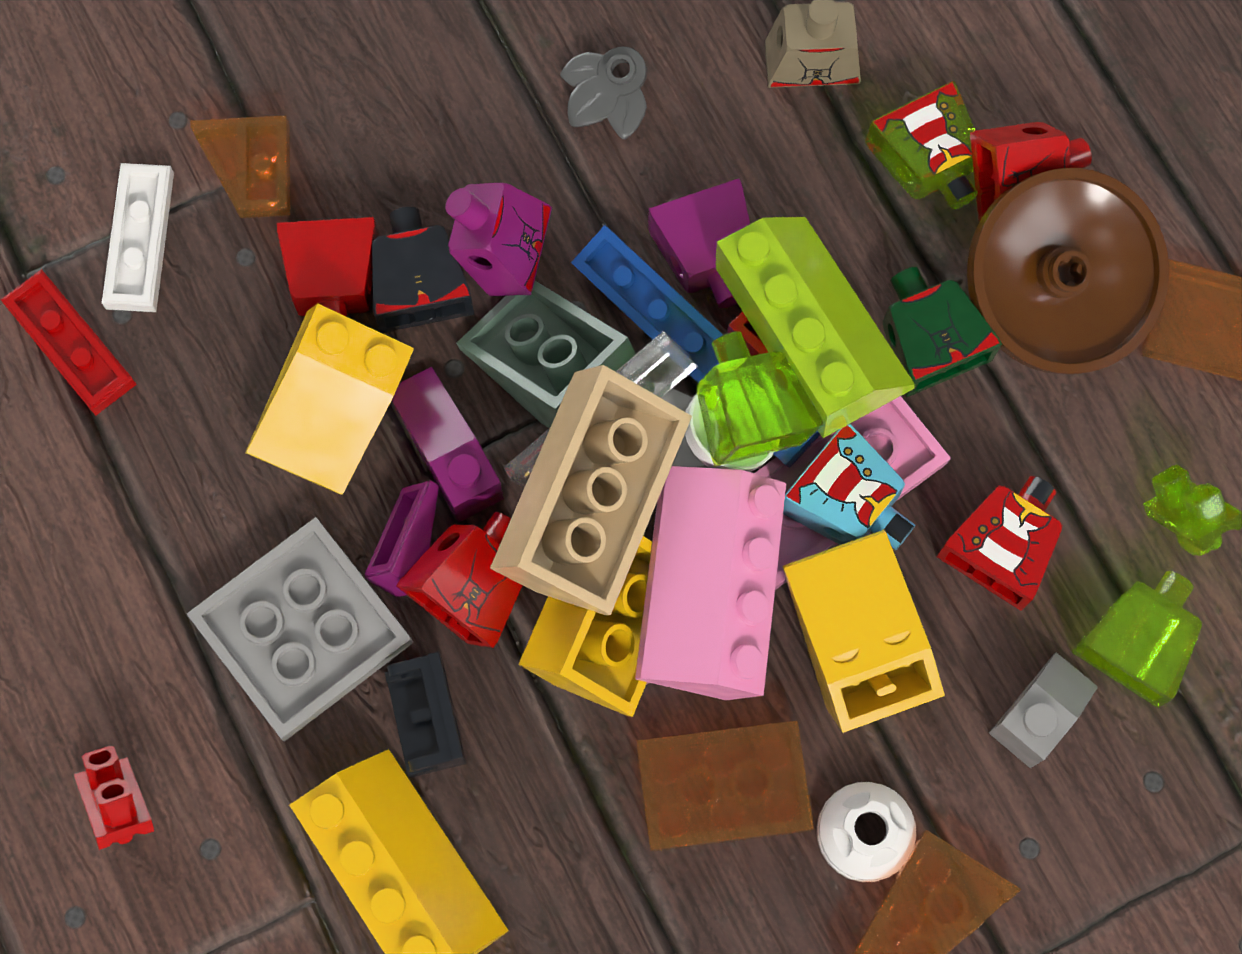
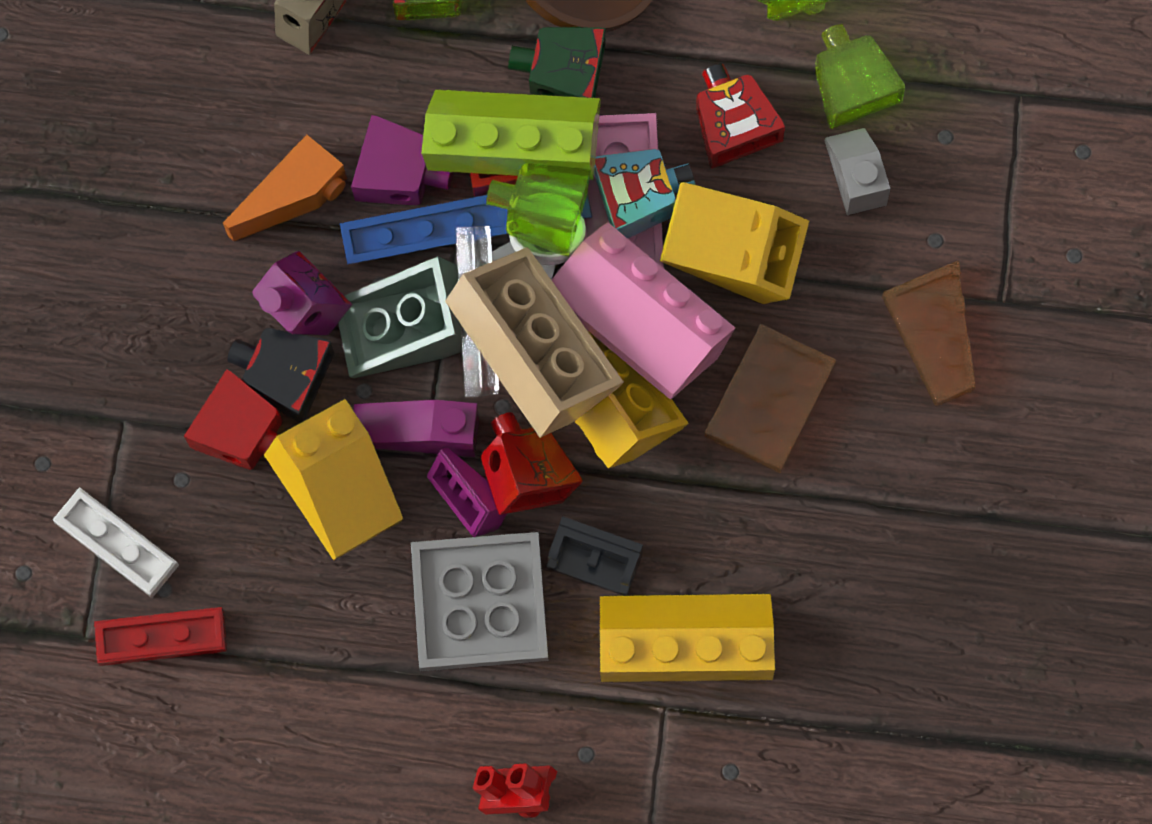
camera: 50 degrees left, 0 degrees up
(250, 161) = (116, 431): clear orange wing -> none
(602, 94) = (238, 165): dark grey plate -> none
(614, 158) = (291, 189): none -> orange slope
(844, 849) = (856, 350): white piece -> none

